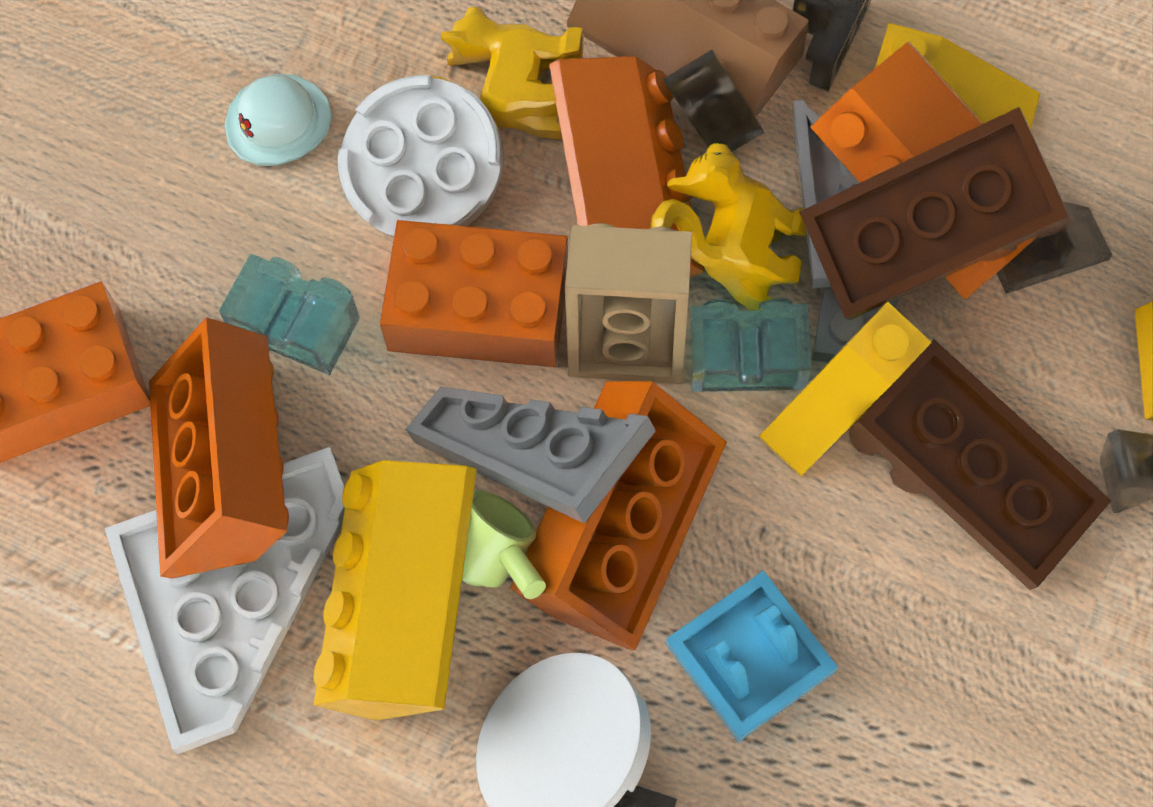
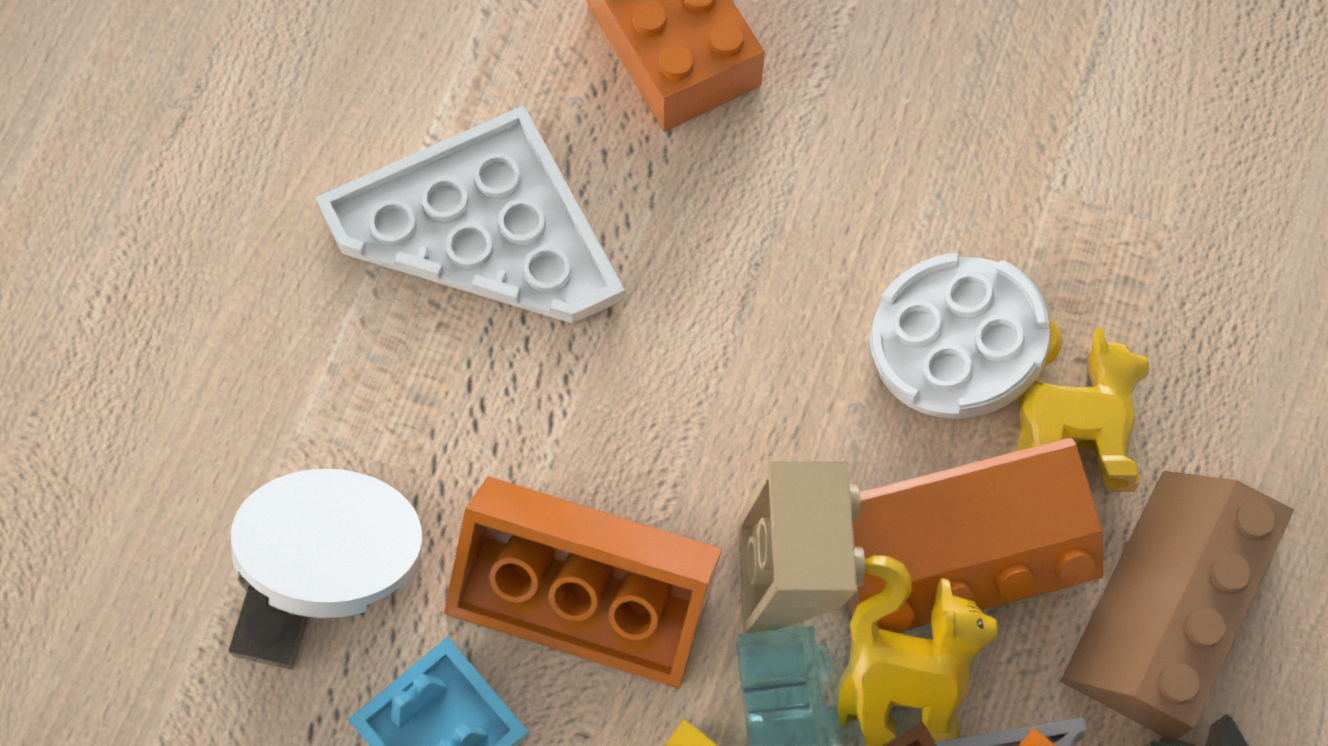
camera: 80 degrees right, 0 degrees up
(216, 452) = (604, 186): orange slope -> none
(277, 120) = (990, 195): light aqua hat -> none
(299, 317) = (765, 235): clear light blue brick -> none
(395, 589) = (472, 362): yellow slope -> none
(475, 293) = (810, 392): orange brick -> none
(498, 545) = (529, 448): yellowish green piece -> none
(531, 447) = (625, 481): light grey wing -> none
(714, 102) = (1068, 630): clear smoke slope -> none

